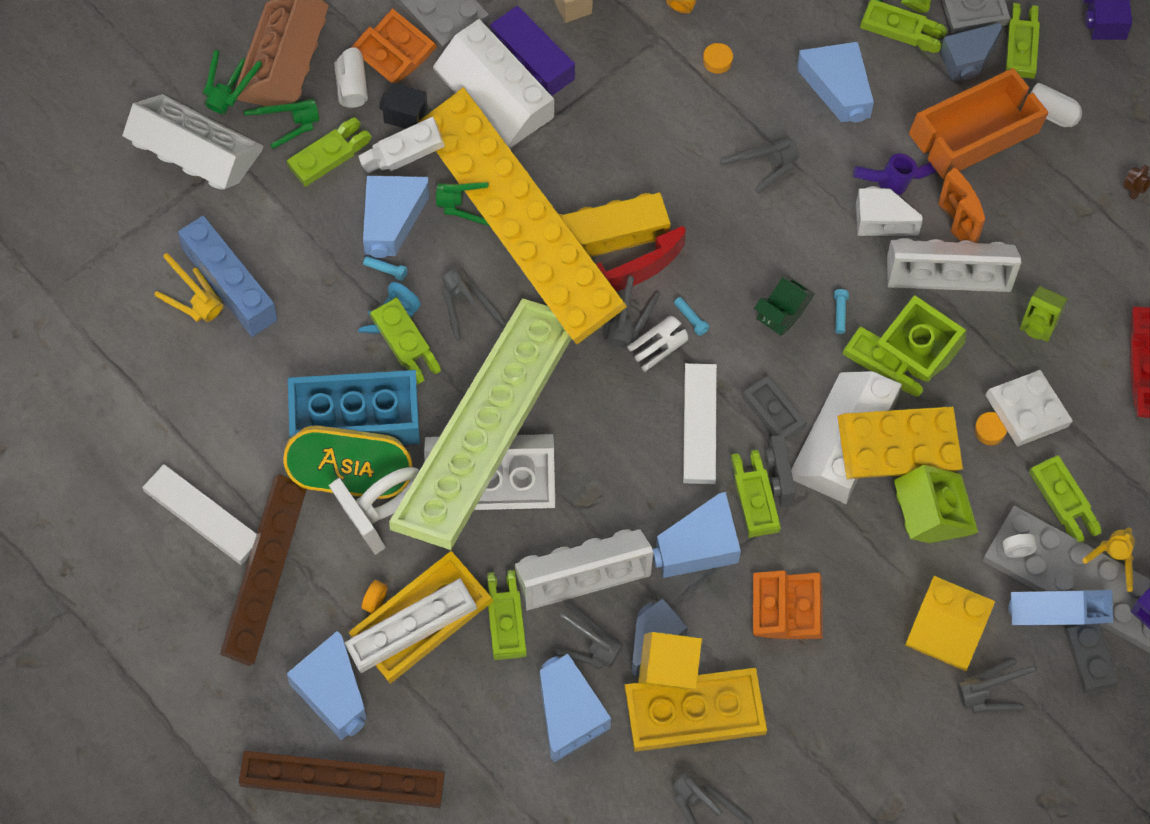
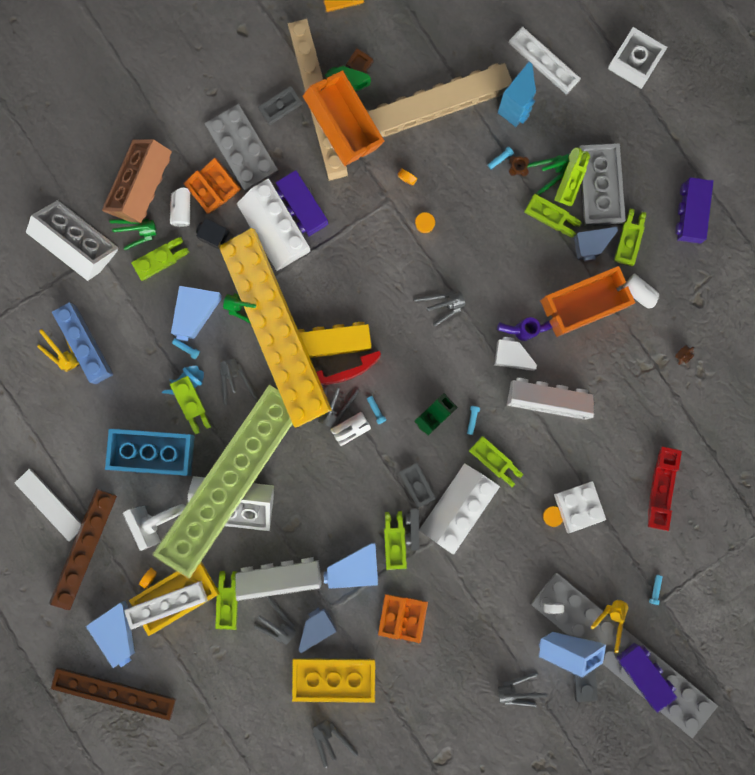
camera: 15 degrees right, 20 degrees up
(221, 96) = (94, 211): green plant -> none
(358, 458) = (141, 488): green tile -> none
(403, 147) = (208, 265): white hinge -> none
(570, 707) = (256, 668): light blue slope -> none
(670, 661) = (319, 659): yellow head -> none
(699, 424) = (369, 486): white tile -> none
(838, 79) = (502, 252): light blue slope -> none
(899, 441) = (491, 526): yellow plate -> none
(923, 338) = (519, 454): lime slope -> none
(935, 505) = (507, 567): lime slope -> none
(950, 623) = (500, 647): yellow slope -> none
(963, 206) = (567, 371): orange slope -> none
(1043, 313) = (603, 444): lime slope -> none
(1064, 497) = (590, 571): lime hinge -> none

